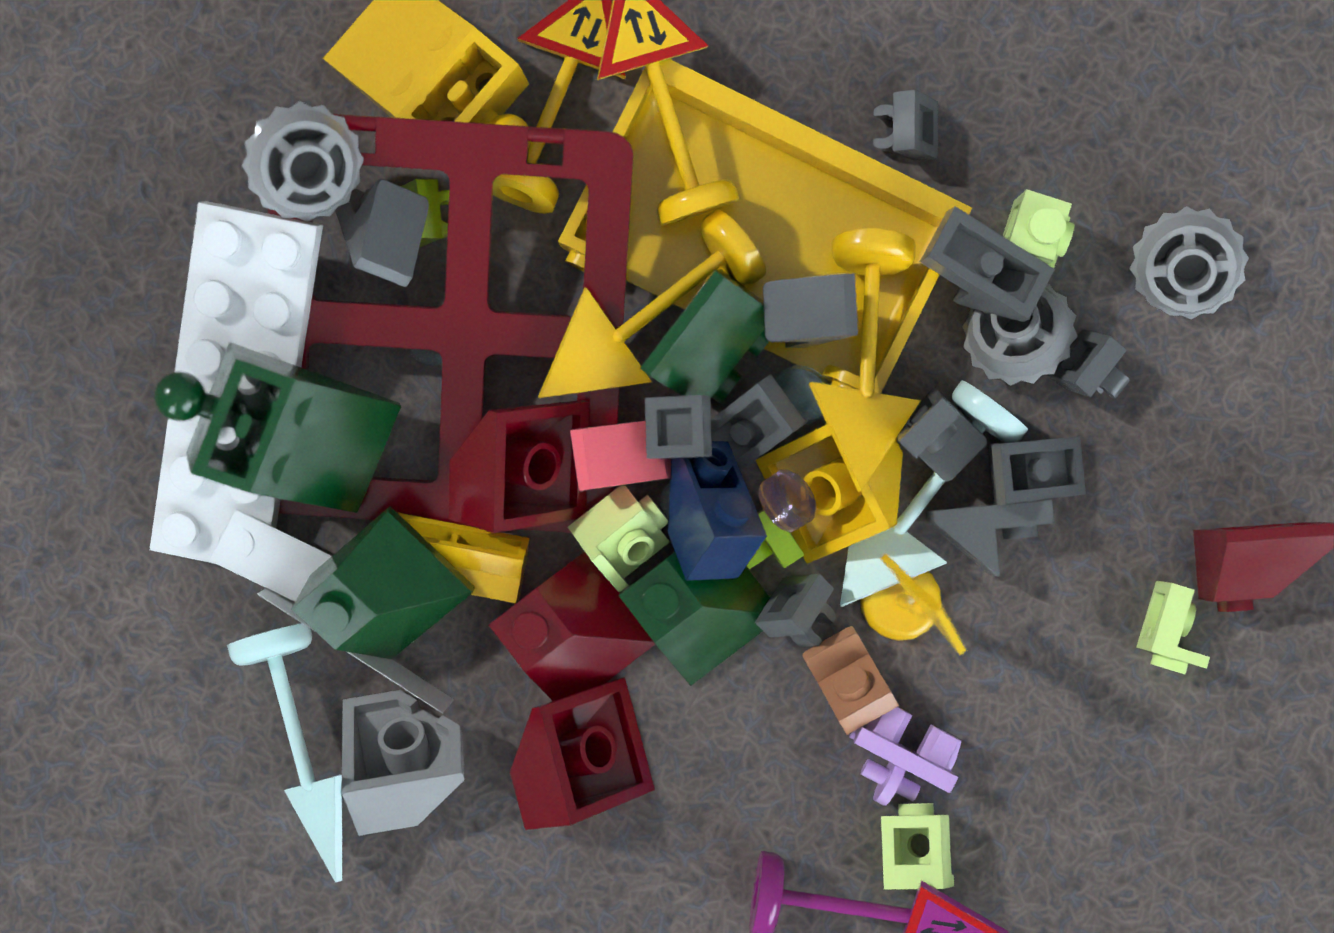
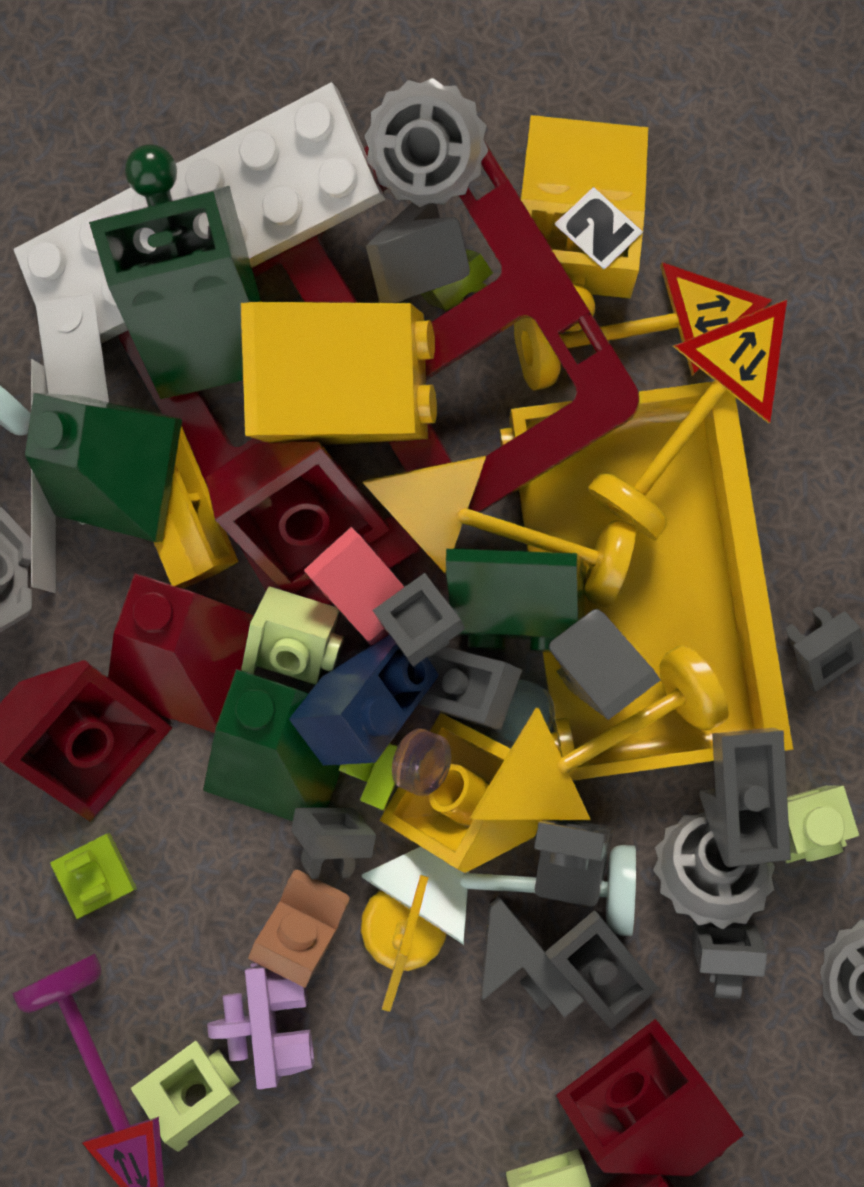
camera: 55 degrees right, 5 degrees down
(441, 358) = (336, 372): none -> yellow slope
(462, 72) = (598, 228): none -> sticker
(699, 814) = (93, 875): none -> lime tile
(1164, 506) = (648, 1110): none -> dark red slope

